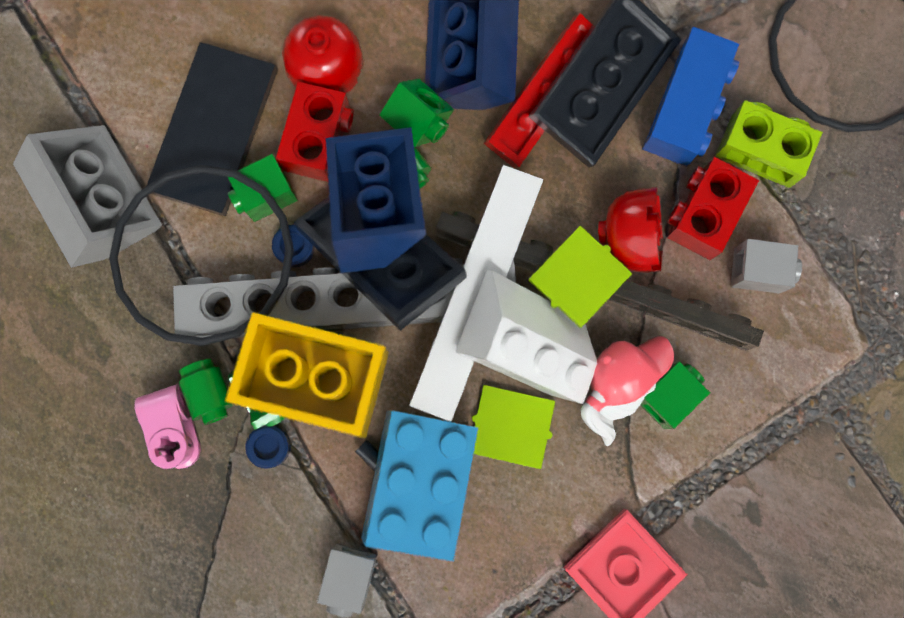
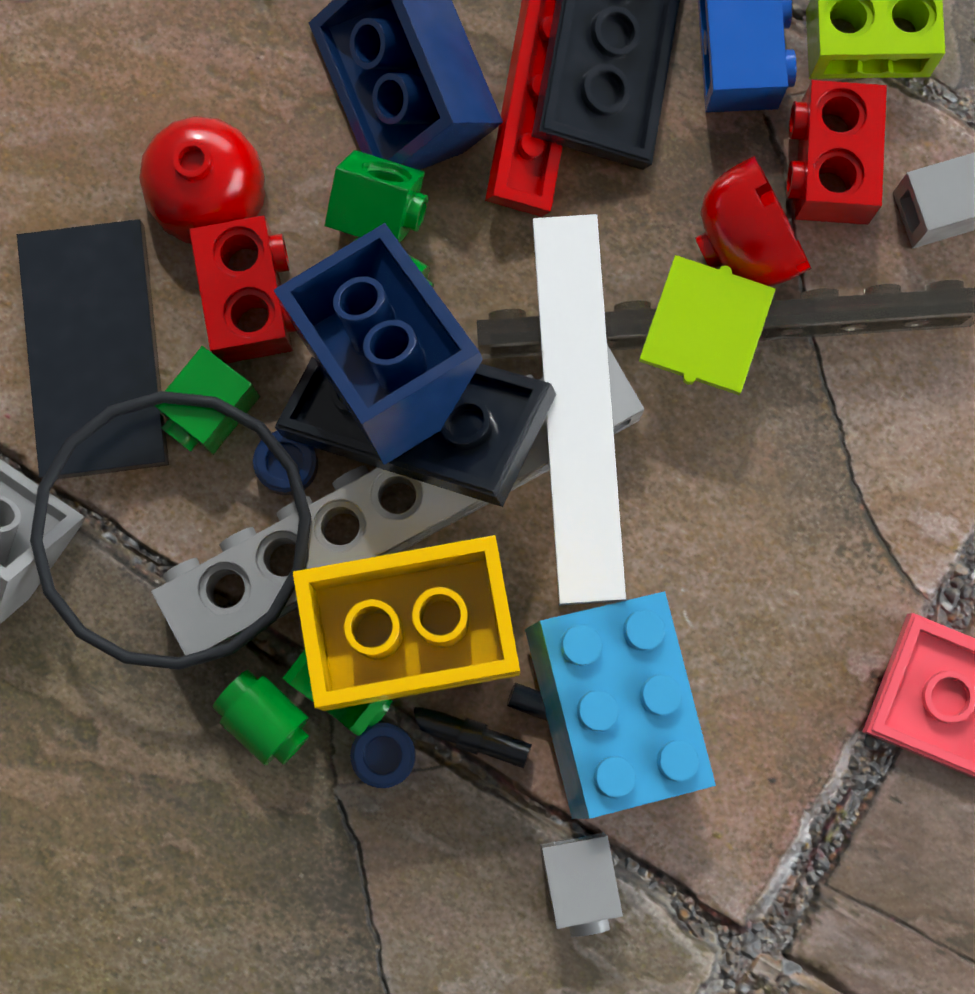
camera: 25 degrees left, 0 degrees up
(165, 422) = (224, 781): bright pink piece -> none
(326, 460) = (473, 736): none -> black piece
(513, 426) = (707, 571): lime piece -> none
(528, 340) = (678, 443): white slope -> none
(623, 381) = (828, 440): coral hair -> none
(675, 395) = (903, 429): green brick -> none

